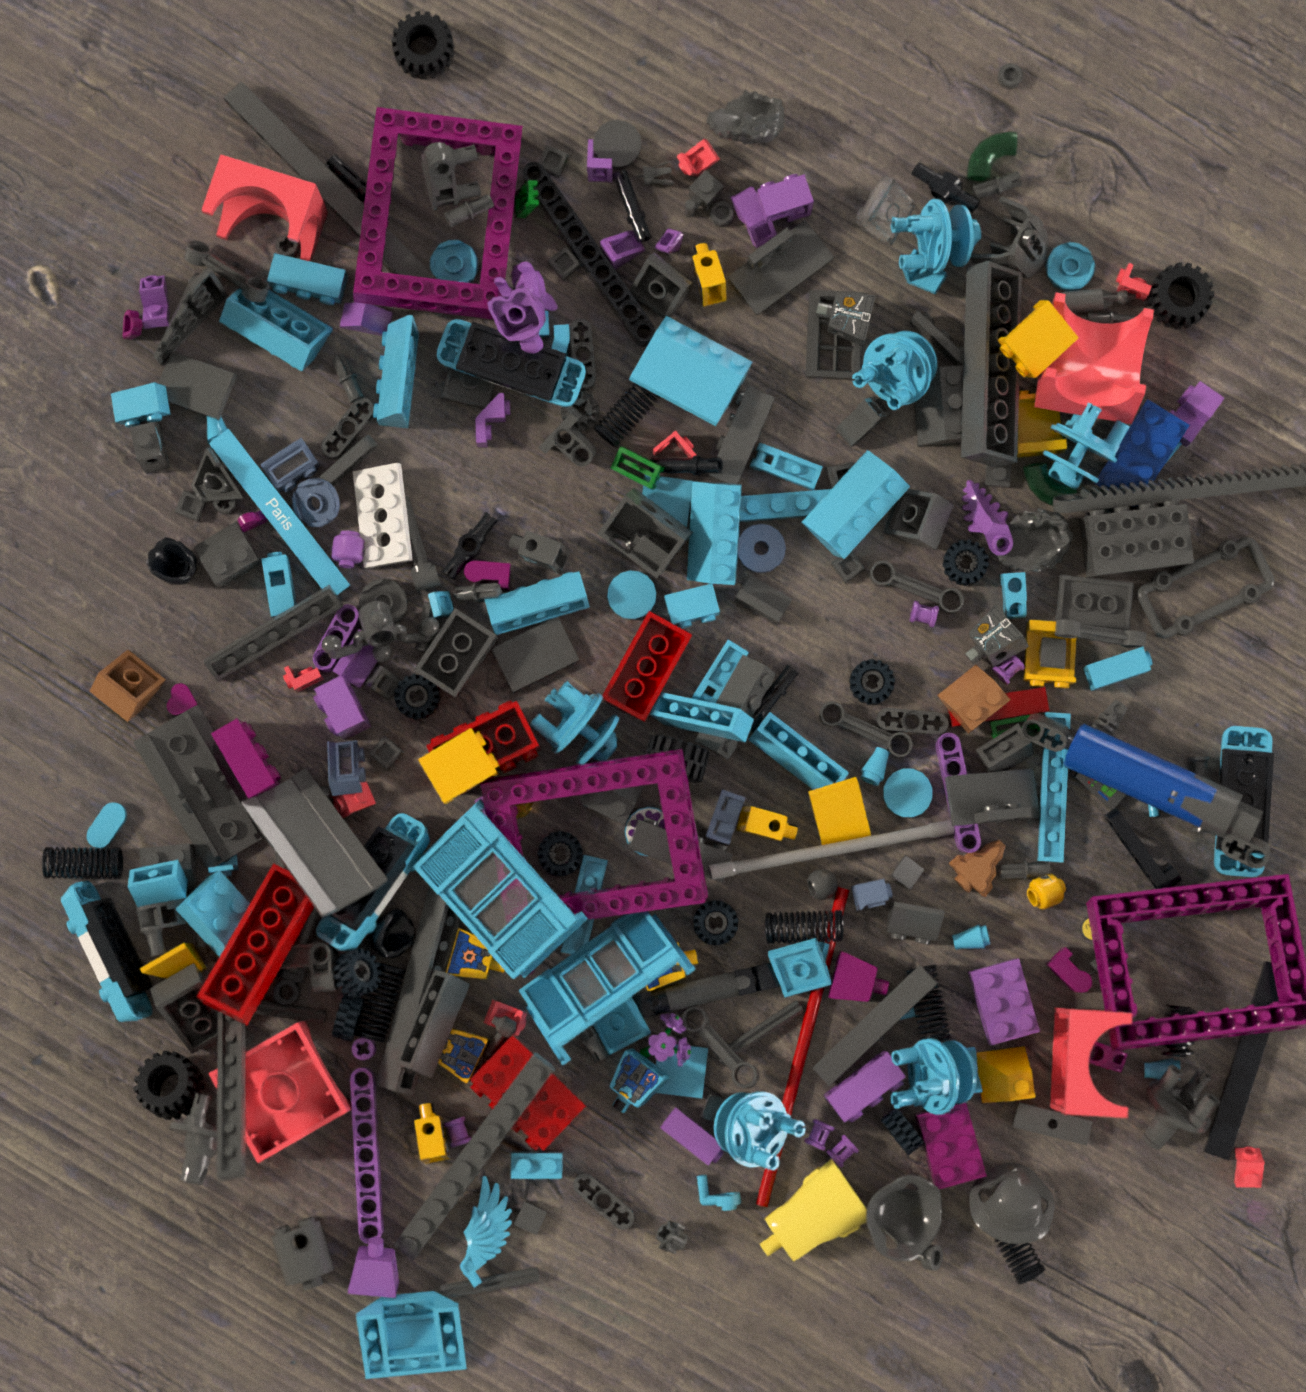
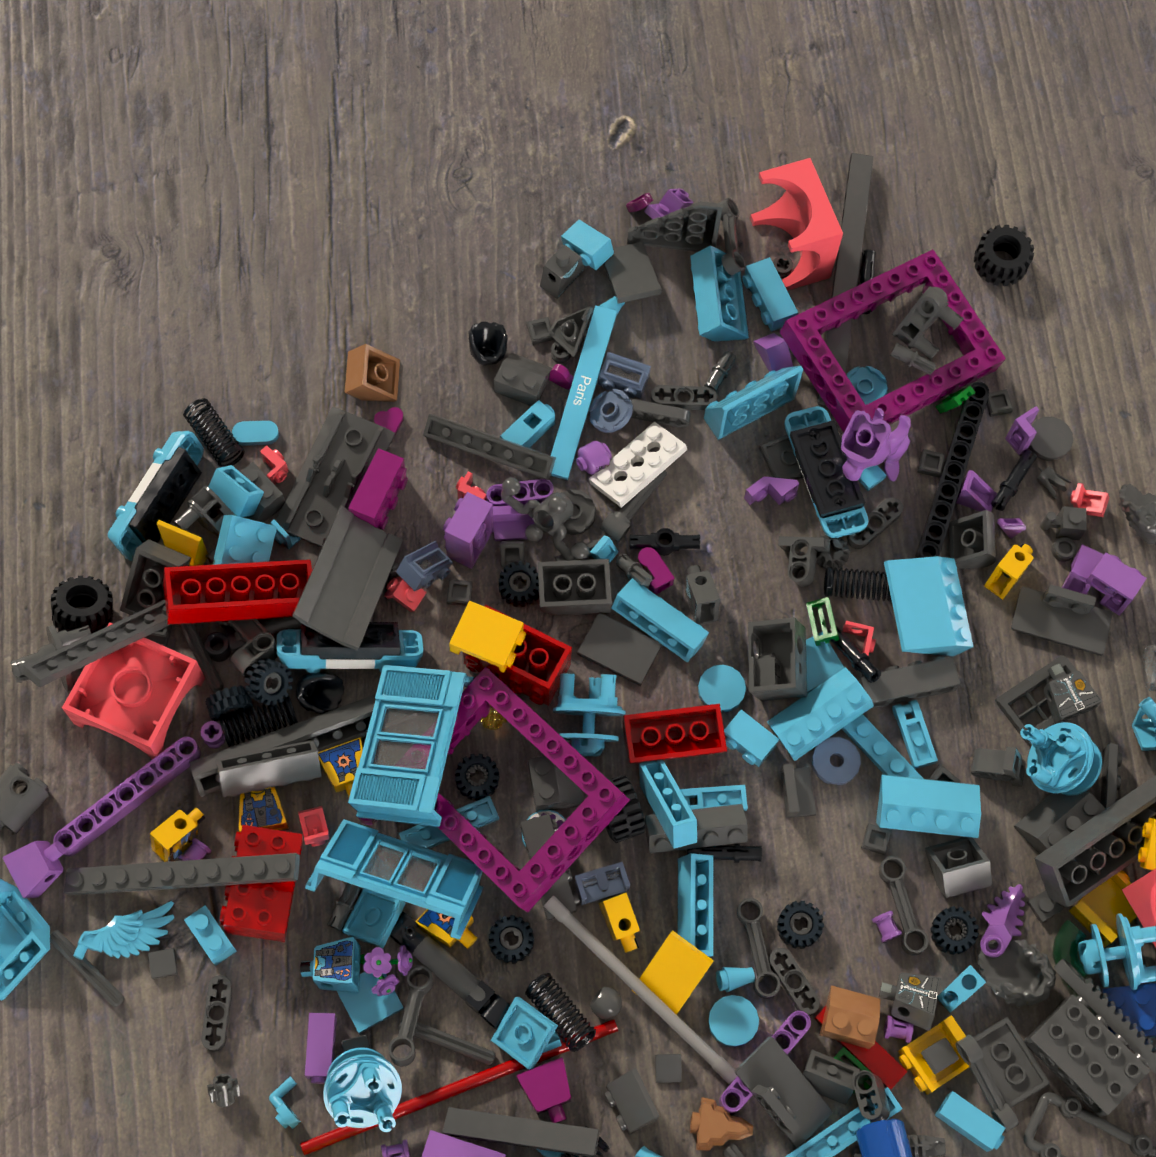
camera: 50 degrees right, 15 degrees down
(147, 826) = (276, 462): none -> coral bracket
(504, 1027) = (305, 826): dark grey piece -> none
(561, 338) = (874, 498): medium azure piece -> none
(871, 894) = (628, 1047): sand blue window -> none

